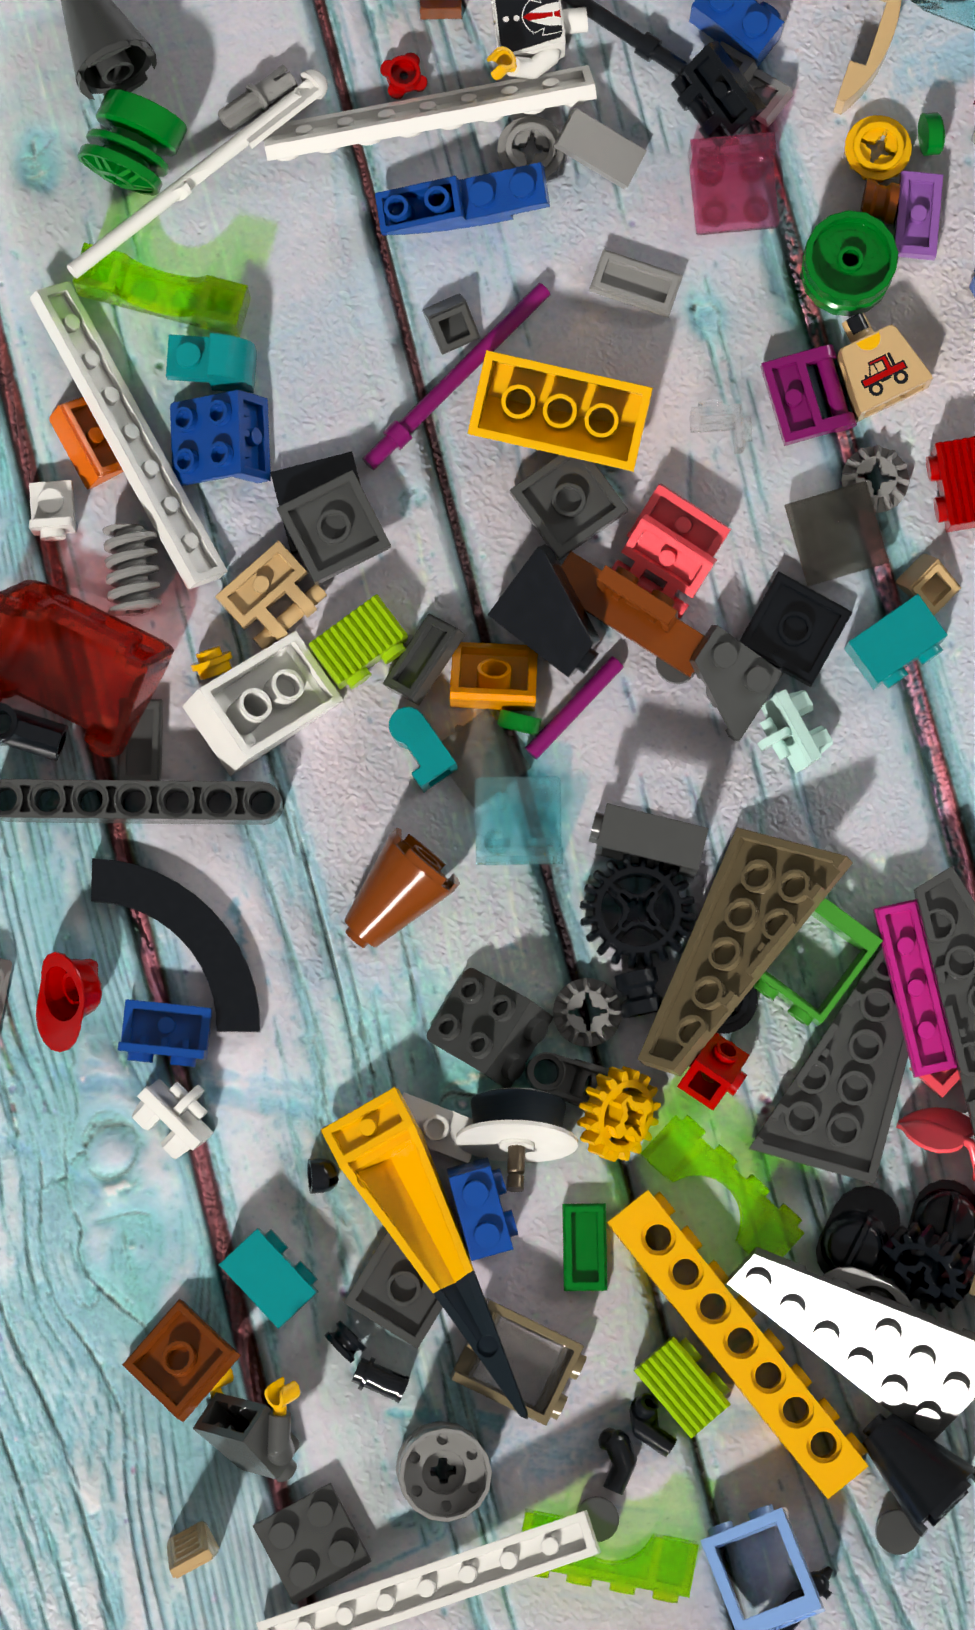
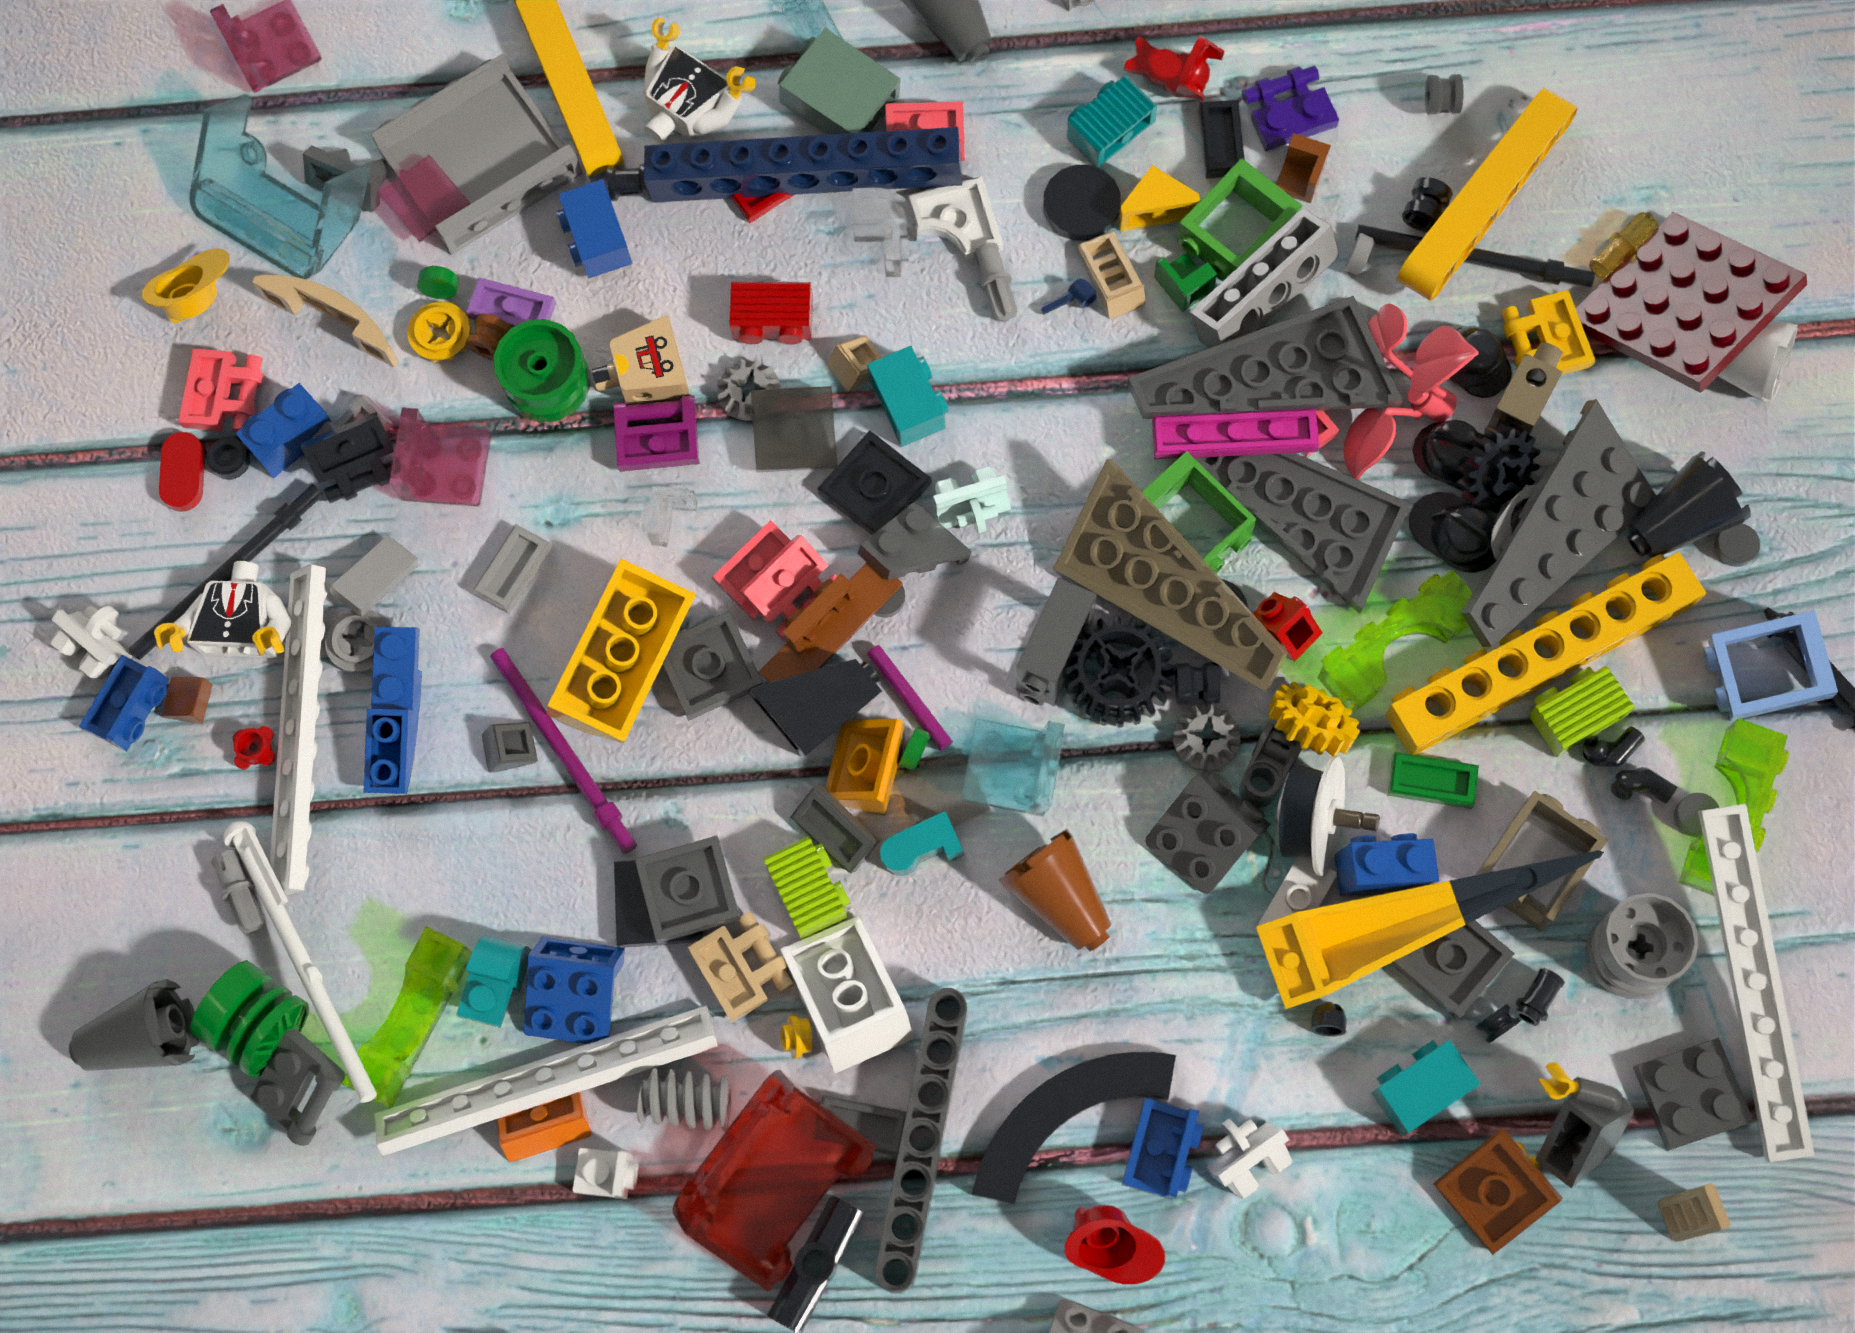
camera: 75 degrees left, 10 degrees down
(83, 192) = (287, 1081): none -> dark grey plate

